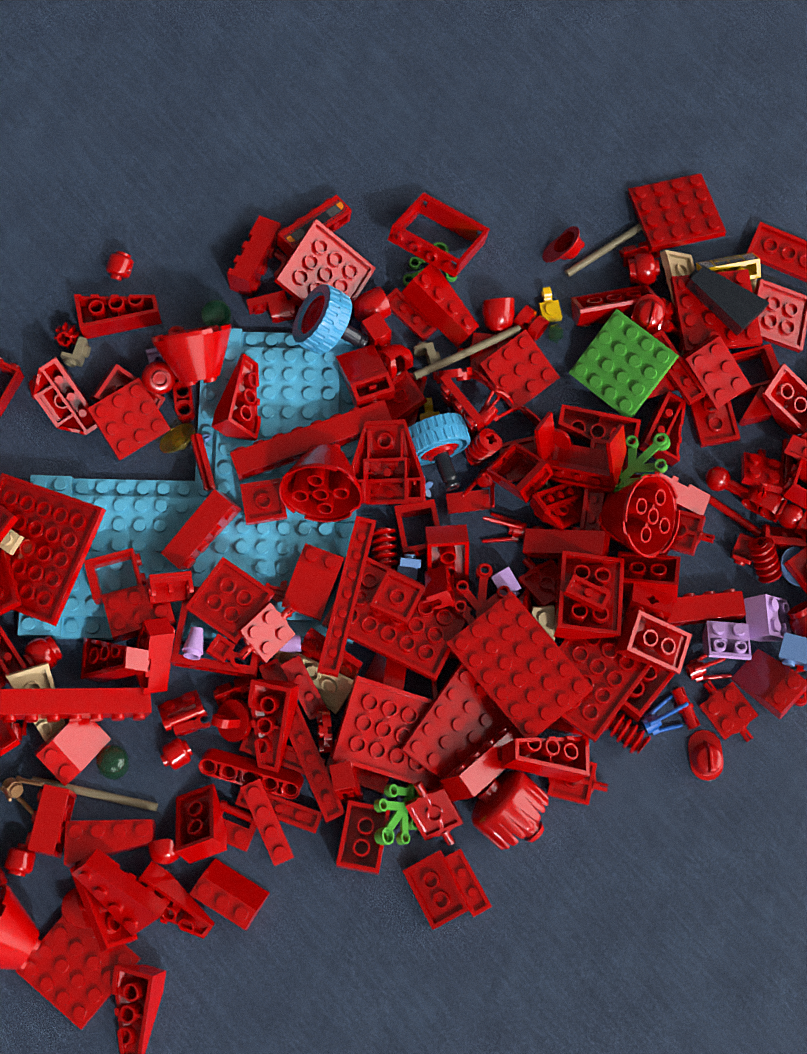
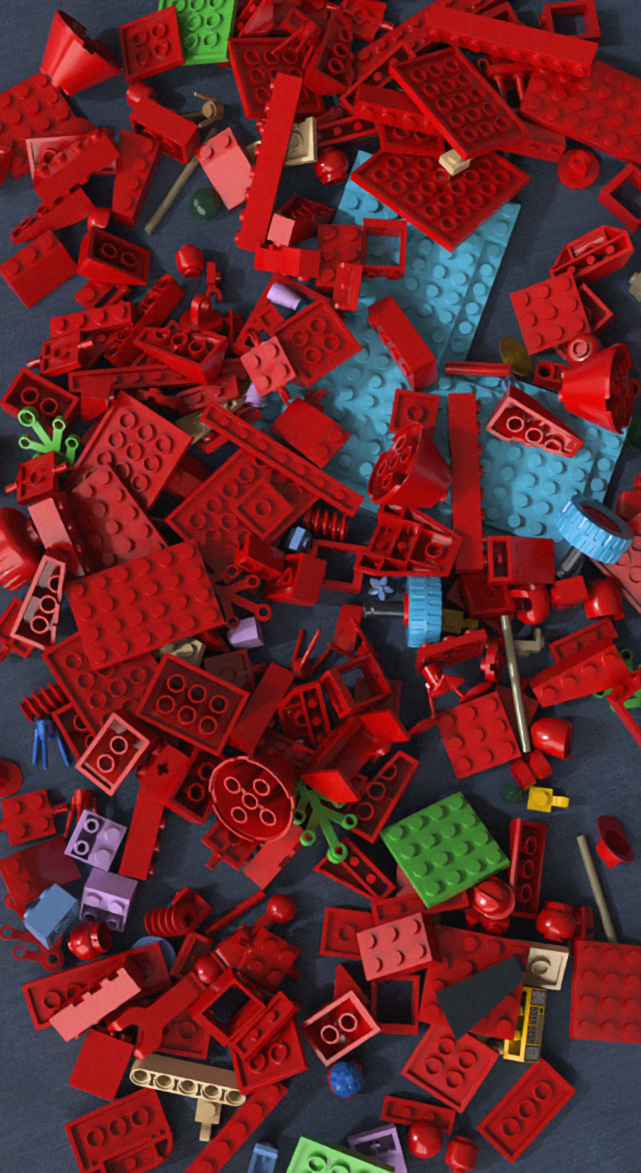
camera: 110 degrees right, 5 degrees up
(181, 709) = (230, 277): red plate -> none
(309, 836) = (61, 354): none -> red plate
(482, 446) = (401, 660): red piece -> none
(587, 593) = (189, 696): red plate -> none
(688, 712) = (48, 775): red pin -> none

